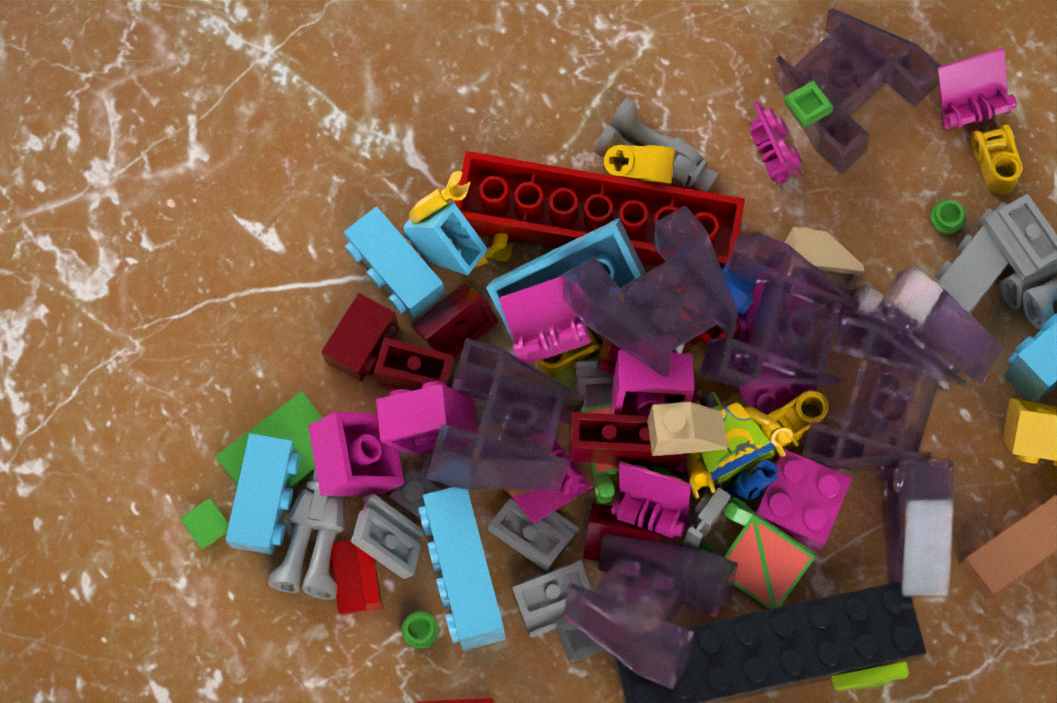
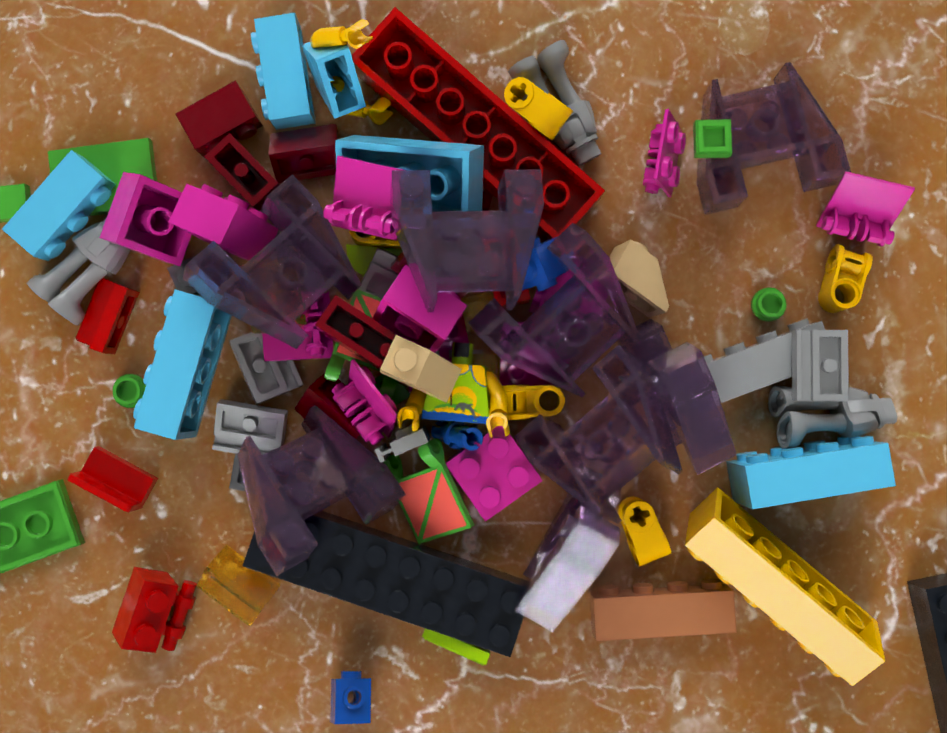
camera: 30 degrees right, 15 degrees up
(388, 536) = (136, 302): light grey plate -> none
(975, 478) = (644, 535): none -> yellow piece

